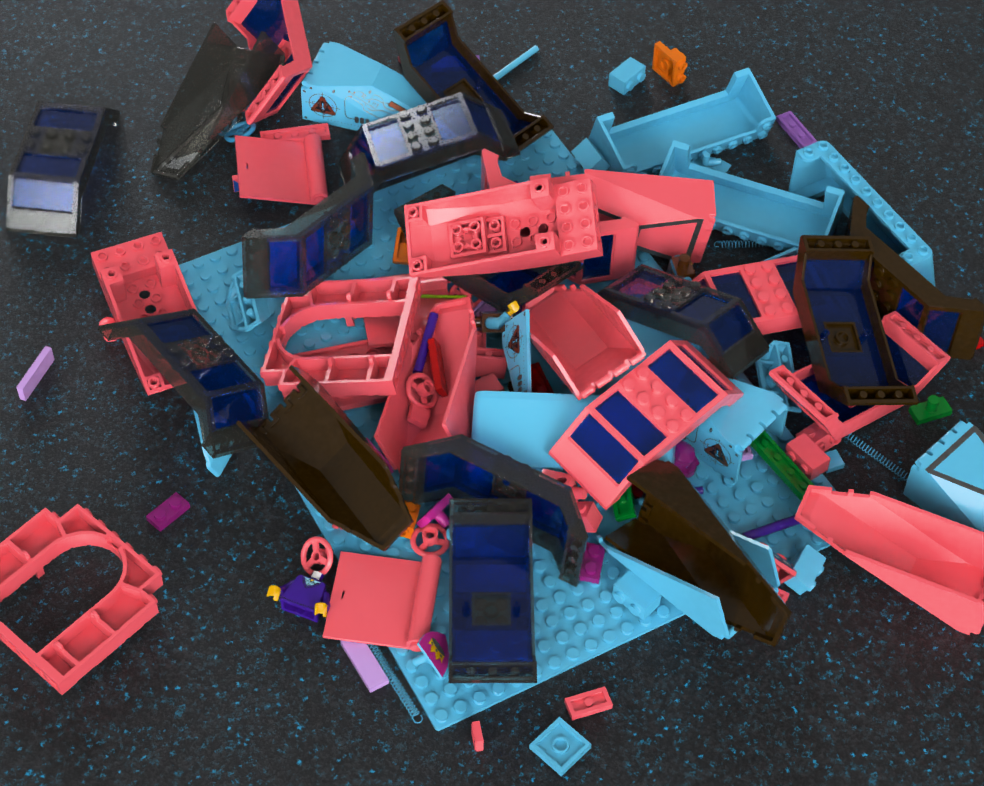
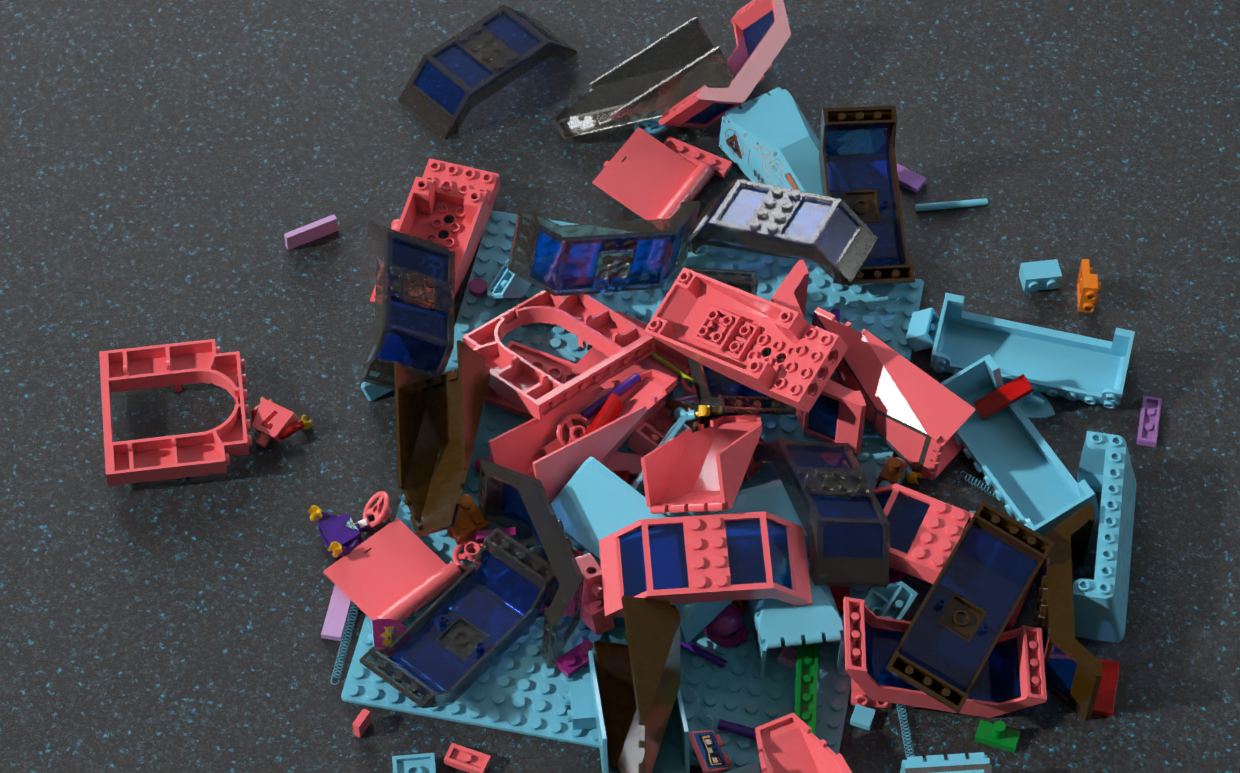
camera: 40 degrees right, 0 degrees up
(159, 542) = (275, 422): none -> coral torso
(168, 511) = (308, 403): magenta plate -> none
(224, 330) = (478, 287): none -> magenta tile
(701, 162) = (1003, 397): none -> red tile
(807, 456) = (837, 697): coral brick -> none

